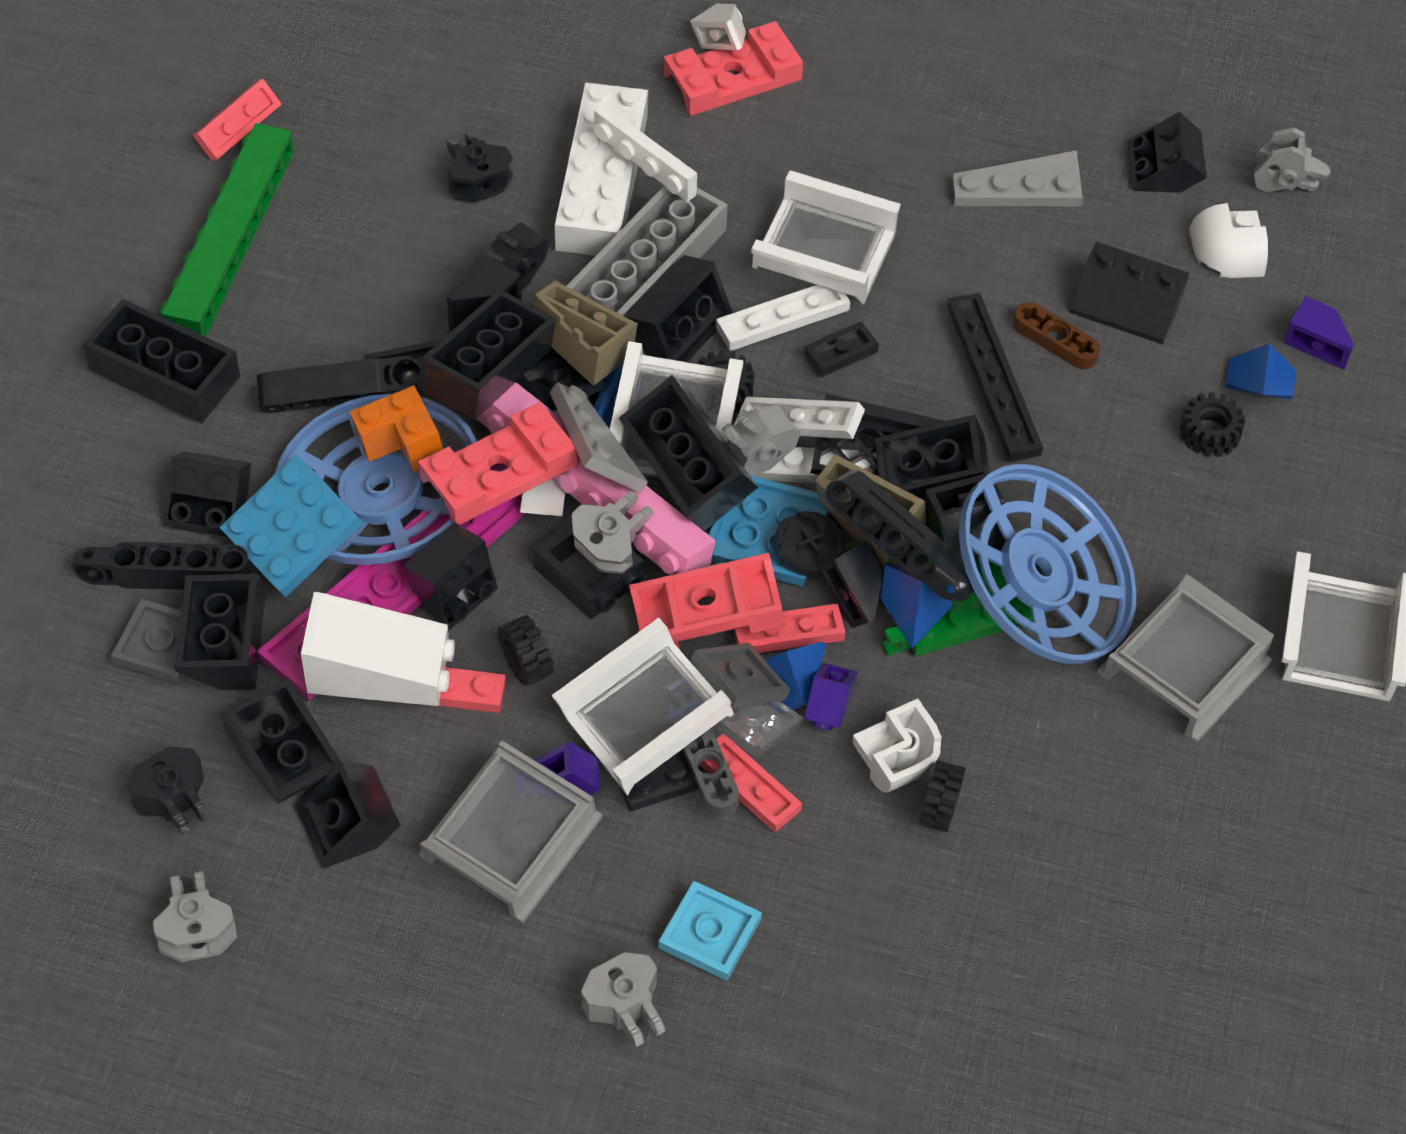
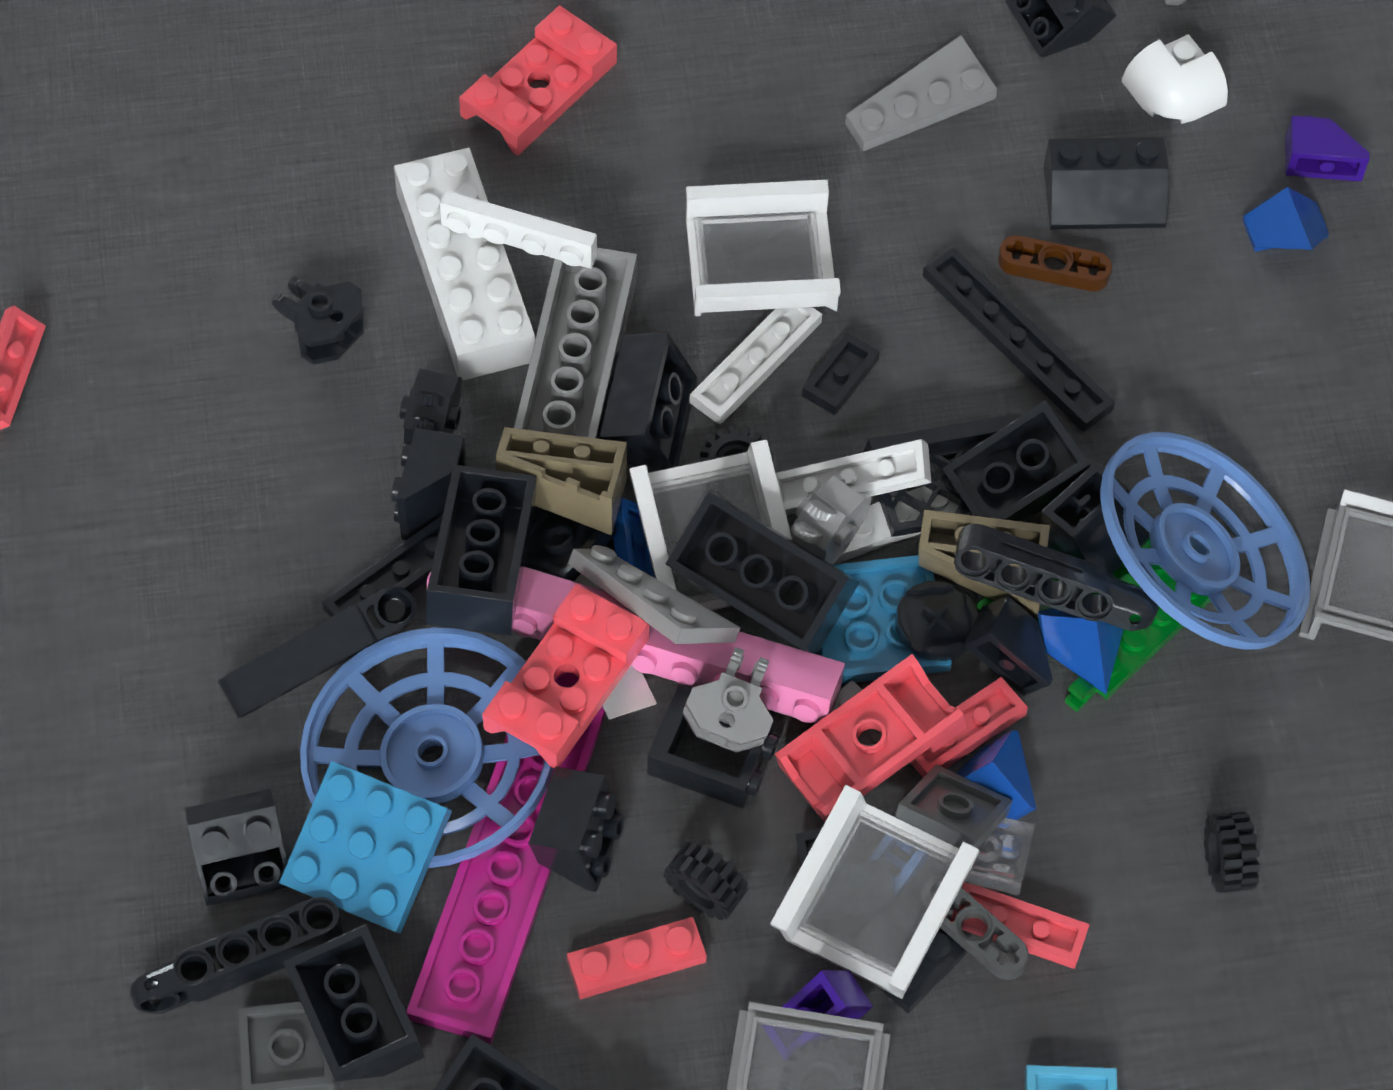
camera: 25 degrees left, 5 degrees up
(162, 360) = (95, 707): black brick -> none
(229, 229) = (78, 515): green brick -> none
(374, 653) = (551, 960): white slope -> none
(397, 424) = (431, 672): orange brick -> none
(720, 28) = (502, 38): white slope -> none
(830, 696) = (1054, 786): dark purple slope -> none
(900, 746) = (1158, 815): white brick -> none
(1217, 410) = (1263, 319): black tyre -> none

